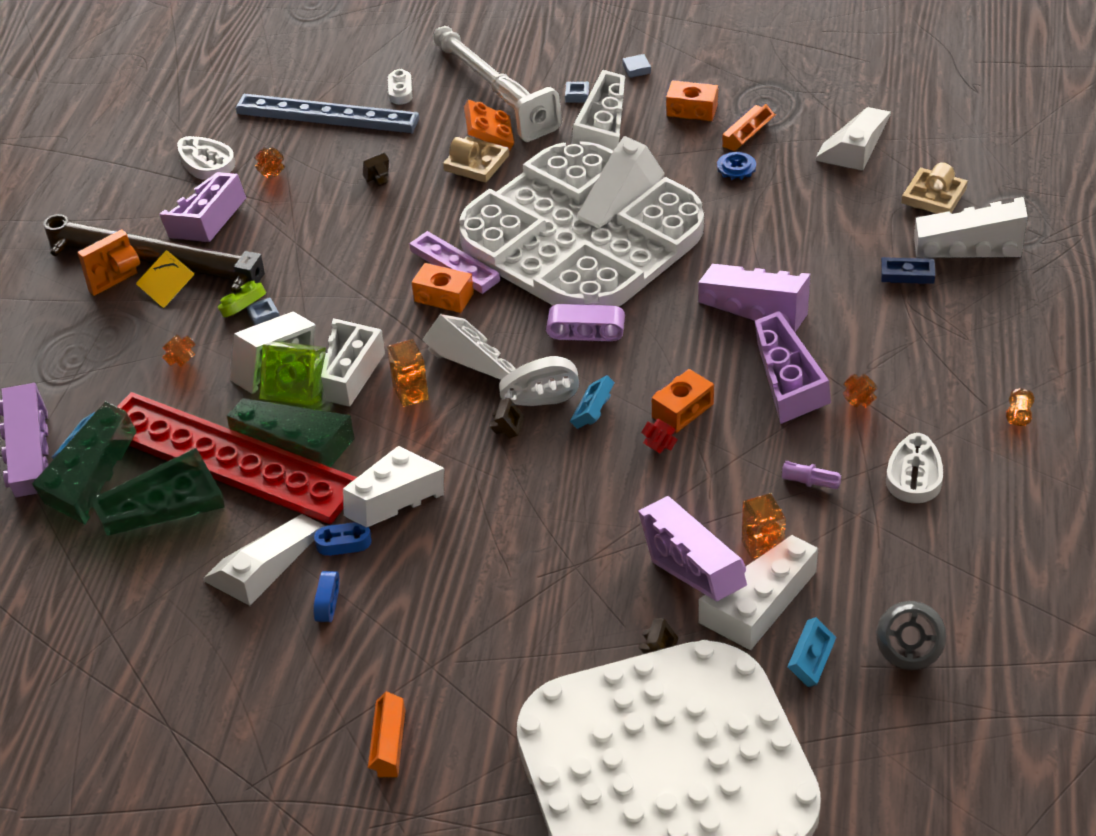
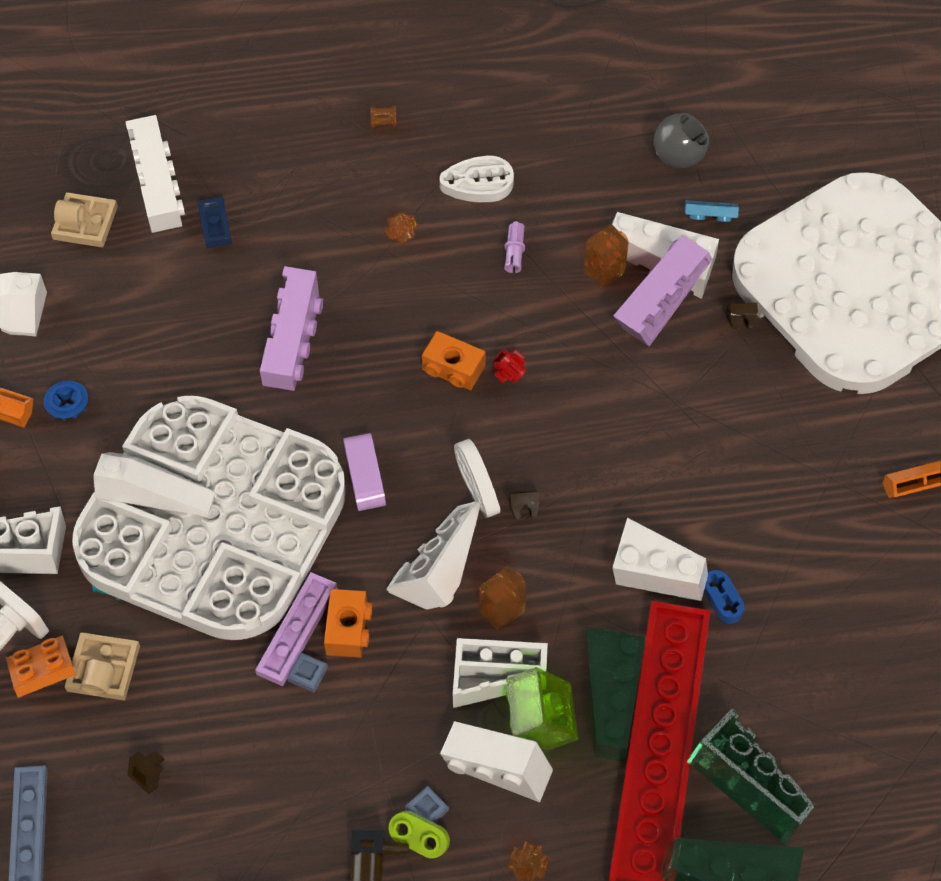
camera: 110 degrees left, 15 degrees up
(261, 562) = (781, 658): white wedge -> none
(326, 596) = (800, 579): blue beam -> none
(412, 264) = (307, 672): none -> sand blue tile
(592, 402) = (483, 433): dark azure plate -> none
(791, 371) = (390, 282): lavender wedge -> none

